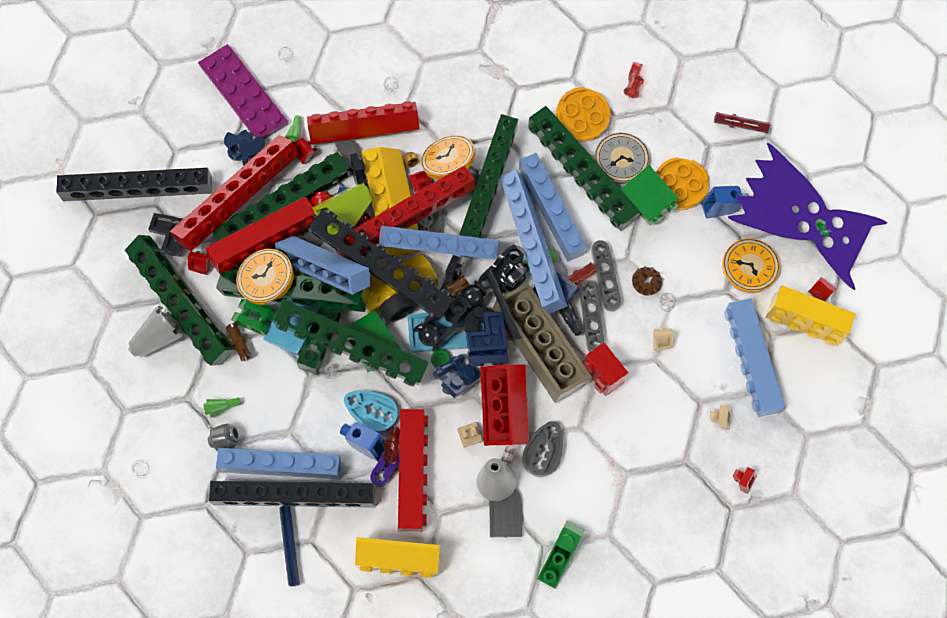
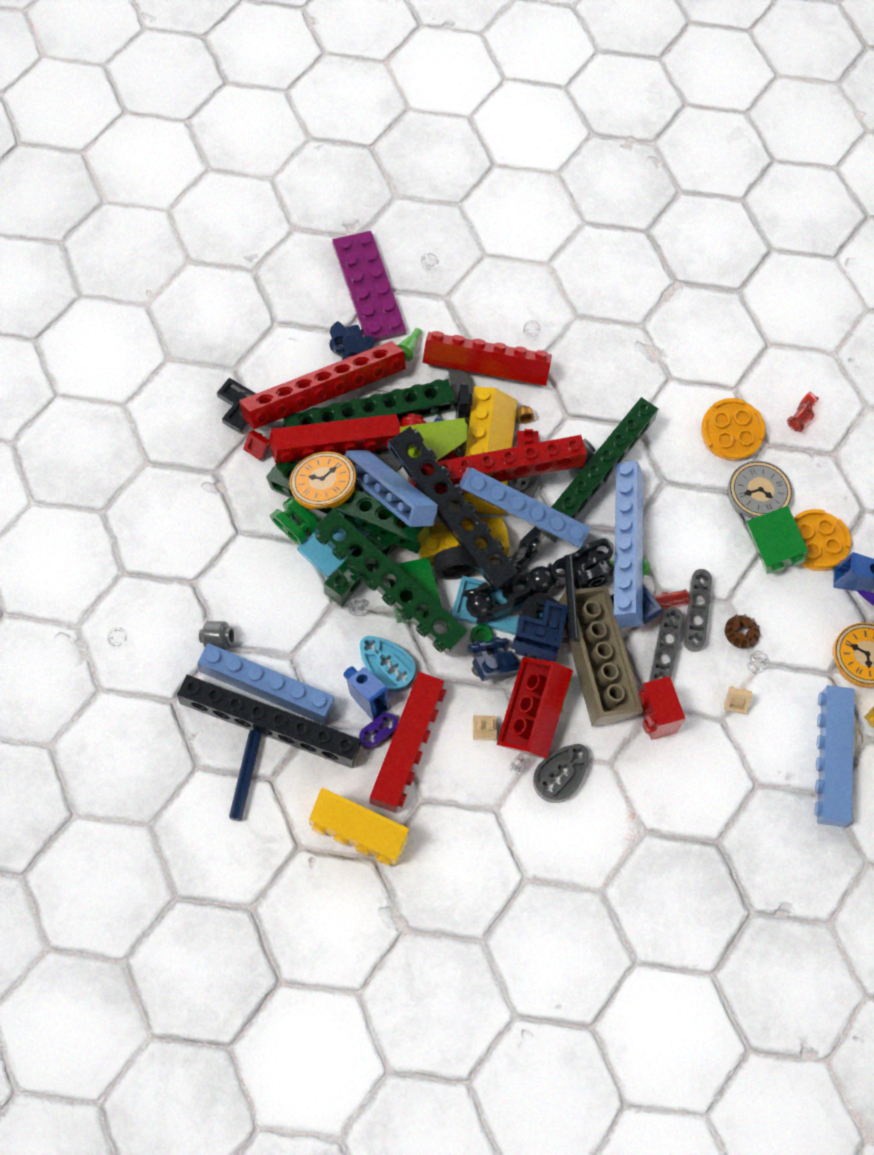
camera: 15 degrees right, 5 degrees down
(134, 184) = (219, 341): black brick -> none
(155, 333) = (184, 502): light grey cone -> none
(188, 311) = (227, 491): dark green brick -> none
(215, 406) = (219, 601): bright green cone -> none
(238, 341) = (269, 542): reddish brown pin -> none
(304, 150) = (413, 367): red tile -> none
(391, 445) = (395, 706): clear red pin -> none
(447, 155) = (567, 421): tile -> none
(456, 287) = (527, 562): reddish brown pin -> none
(496, 480) = (496, 784): light grey cone -> none
(506, 516) = (494, 825): dark grey window -> none
(552, 207) = (663, 516): medium blue brick -> none
(561, 554) = (540, 891): green slope -> none
(571, 319) = (641, 642): black piece -> none
(605, 185) = (722, 493): dark green brick -> none
(722, 417) = (775, 808): tan tile -> none
(745, 479) = (778, 885): red tile -> none

